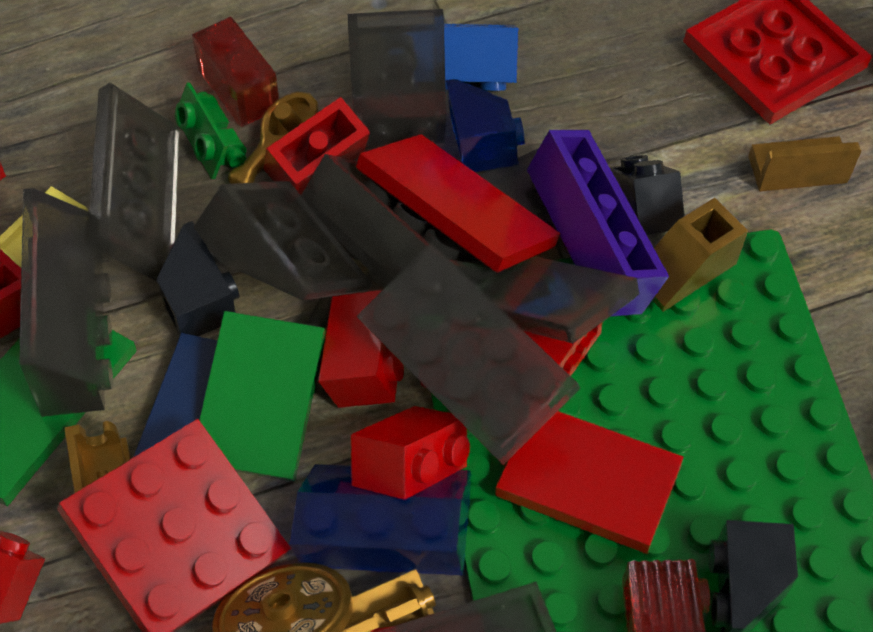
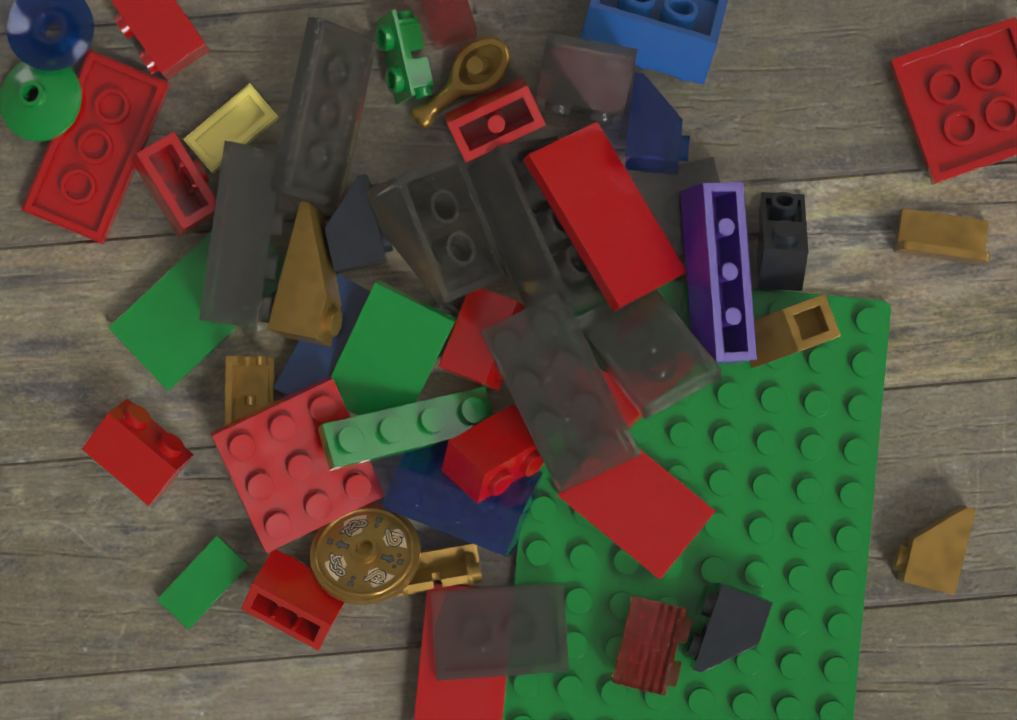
camera: 20 degrees right, 30 degrees up
(149, 355) = (308, 290): none -> pearl gold slope
(280, 457) = (403, 428): none -> green plate

